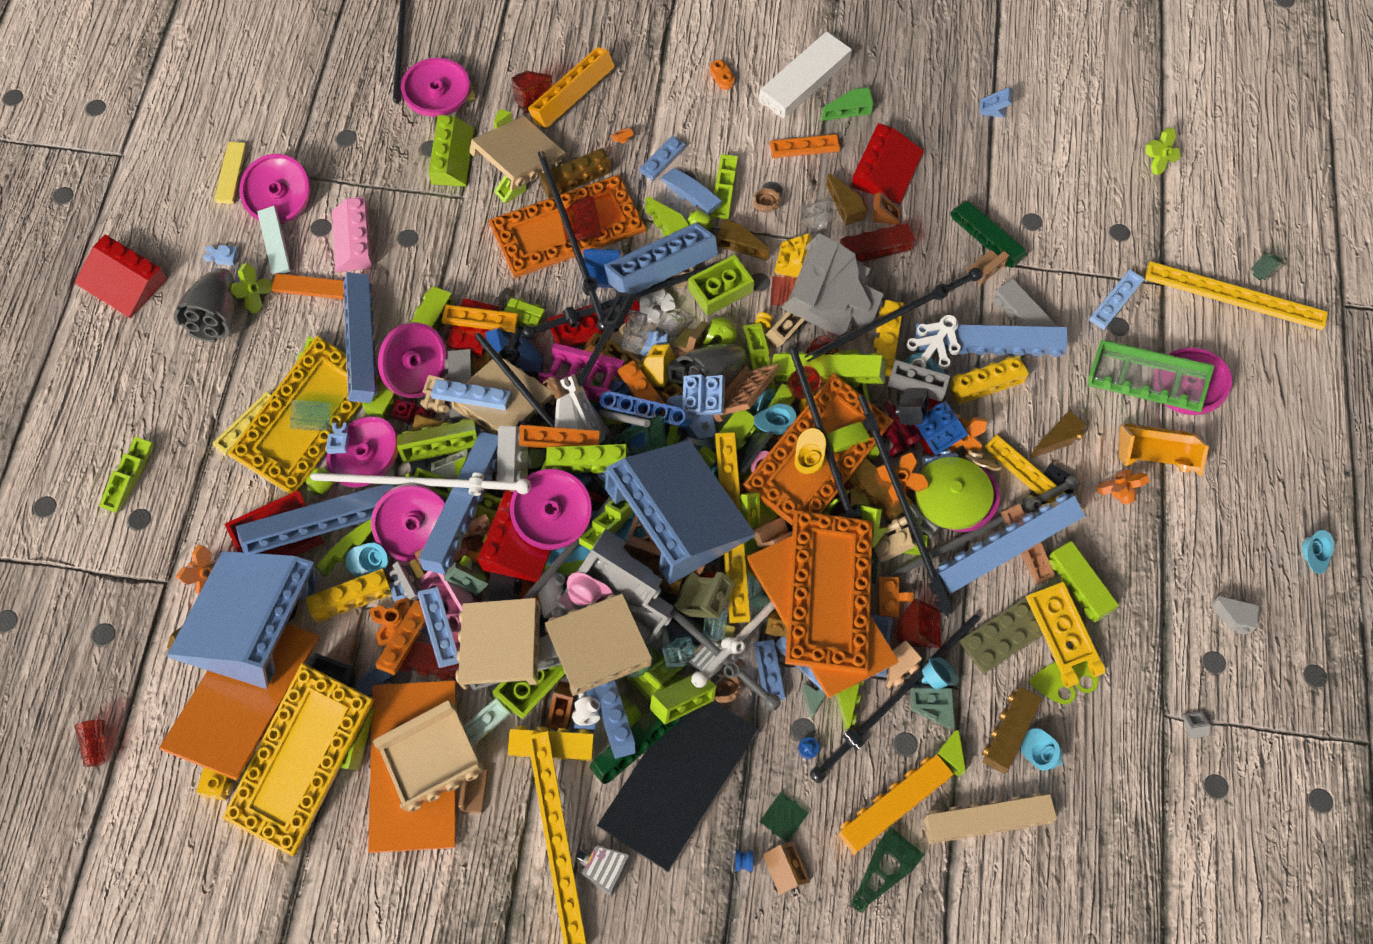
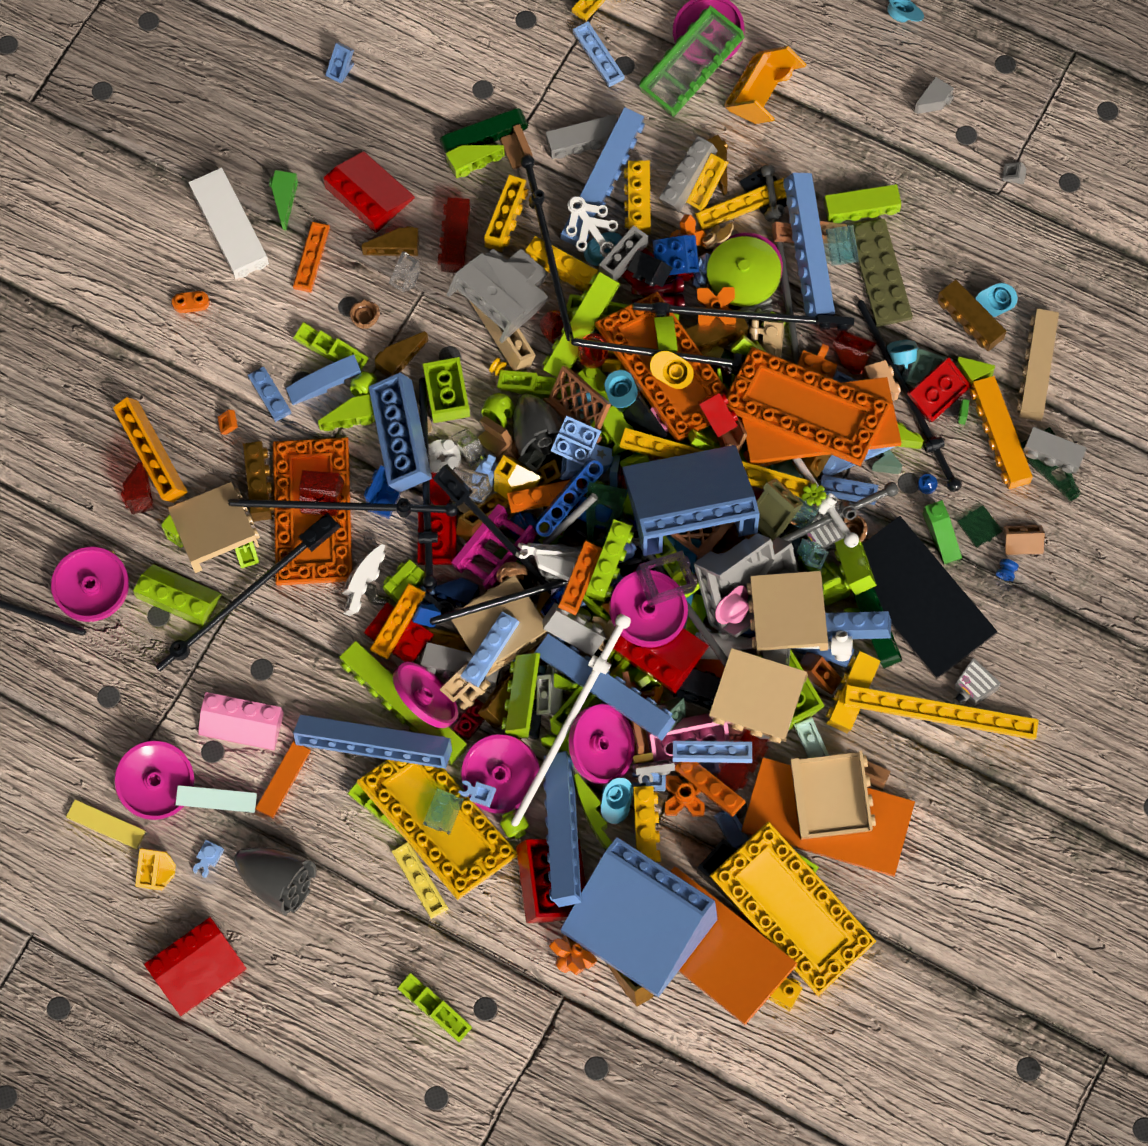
camera: 65 degrees left, 5 degrees up
(91, 742) = (707, 1095): clear red plant -> none
(198, 218) = (154, 869): none -> yellow slope
(250, 288) = (267, 834): lime plant -> none
(521, 279) = (363, 572): none -> white slope
(534, 228) = (309, 539): none -> black bar
(570, 496) = (648, 583): none -> clear purple window
(735, 627) = (814, 494): none -> lime plant
(759, 779) = (942, 531): none -> bright green slope
(781, 289) = (470, 336): clear red piece -> none
(782, 508) = (718, 413): none -> red brick
(792, 256) = (440, 312): yellow slope -> none
(885, 210) = (421, 213): dark orange slope -> none
(895, 865) = (1054, 450): none -> light grey brick
(902, 757) = (963, 412): none -> bright green tile
(914, 723) = (939, 389): none -> red plate
(915, 274) = (506, 211): none -> yellow brick
(956, 230) = (472, 157): none -> lime slope
(1028, 577) = (842, 245): none -> clear light blue plate
(1031, 410) = (687, 174): none -> light grey brick
(1032, 430) = (707, 182): none -> yellow plate
(1049, 681) = (930, 245): lime piece -> none
(1063, 624) = (894, 236): yellow hinge -> none
(1123, 486) = (786, 131): orange plant -> none

